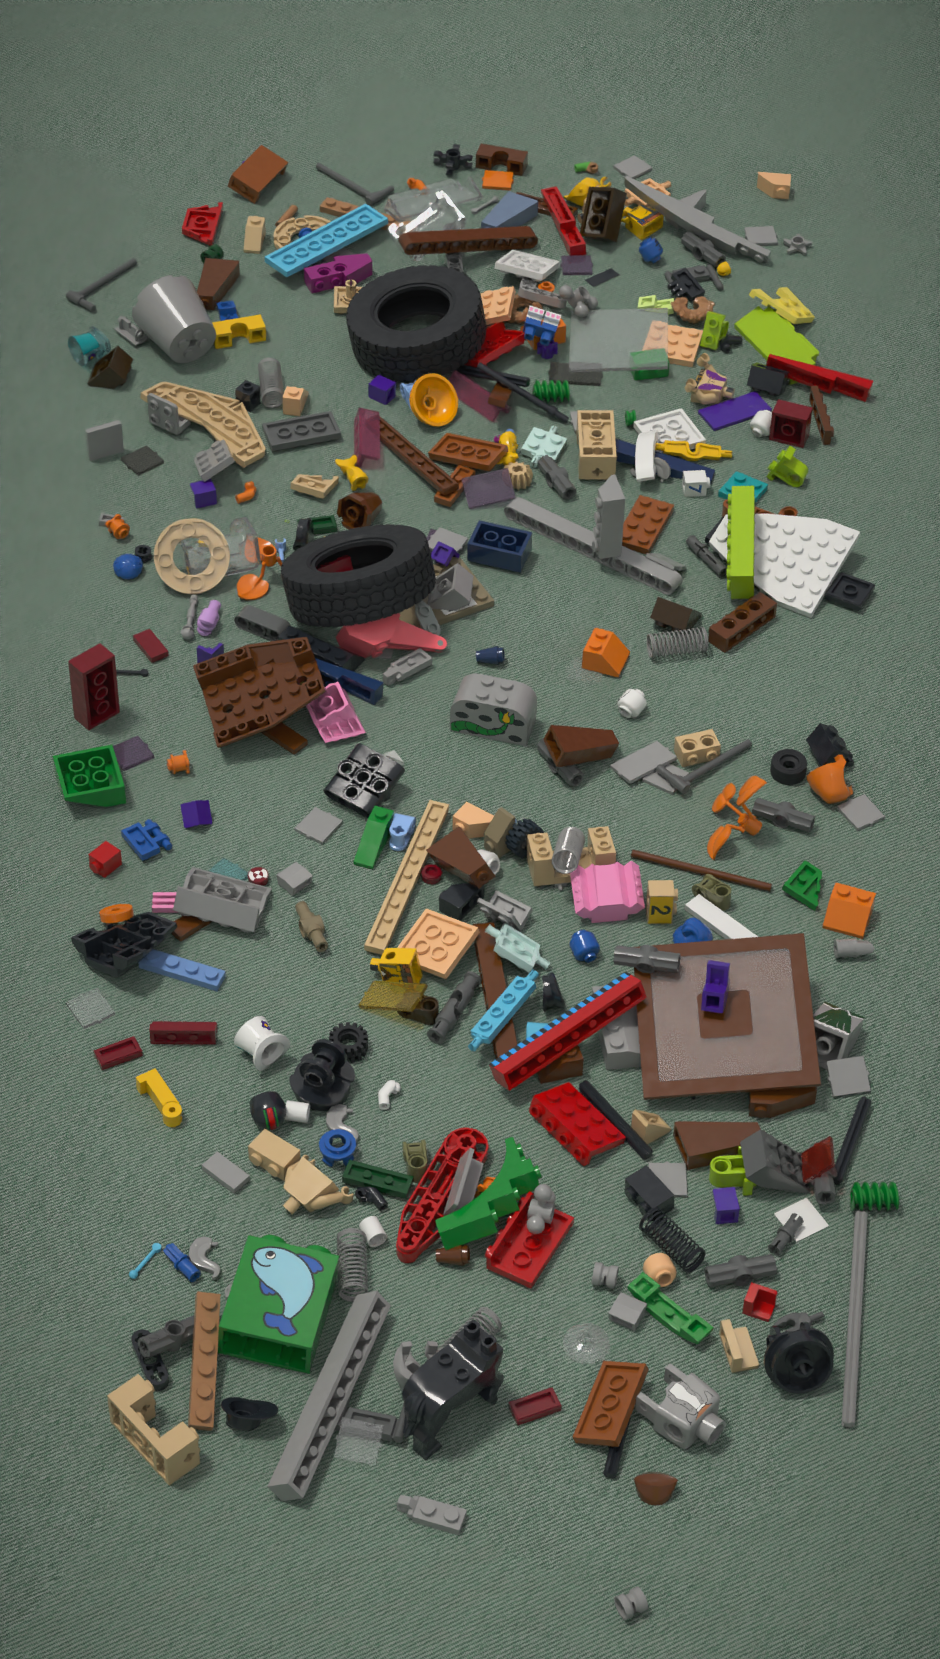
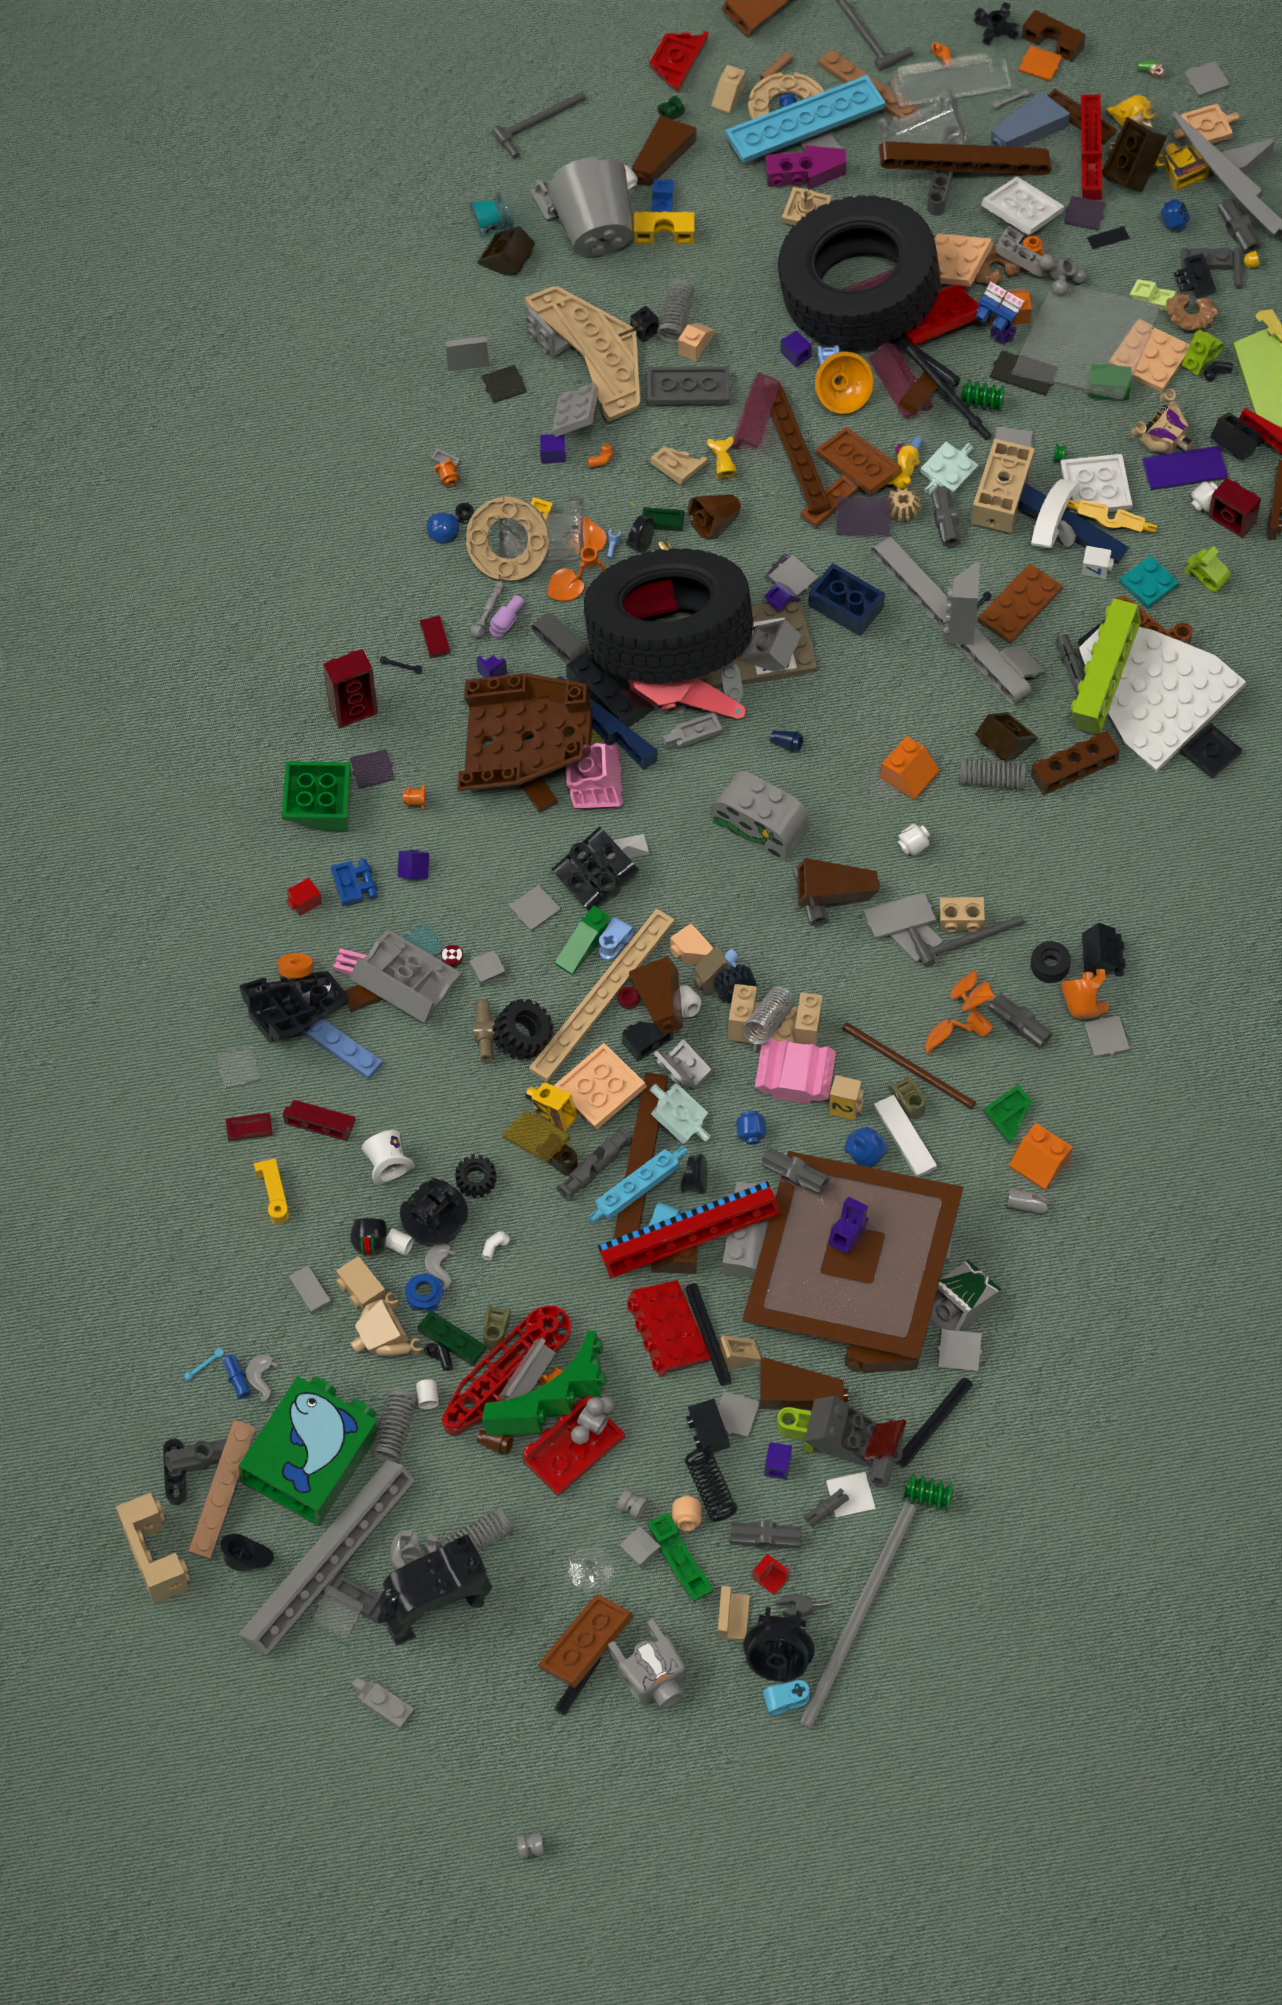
camera: 20 degrees right, 15 degrees up
(348, 913) = (533, 1019): none -> black tyre
(534, 1406) = (516, 1621): dark red tile -> none
(655, 1487) = (597, 1735): reddish brown piece -> none
(821, 1402) = (783, 1697): none -> medium azure piece

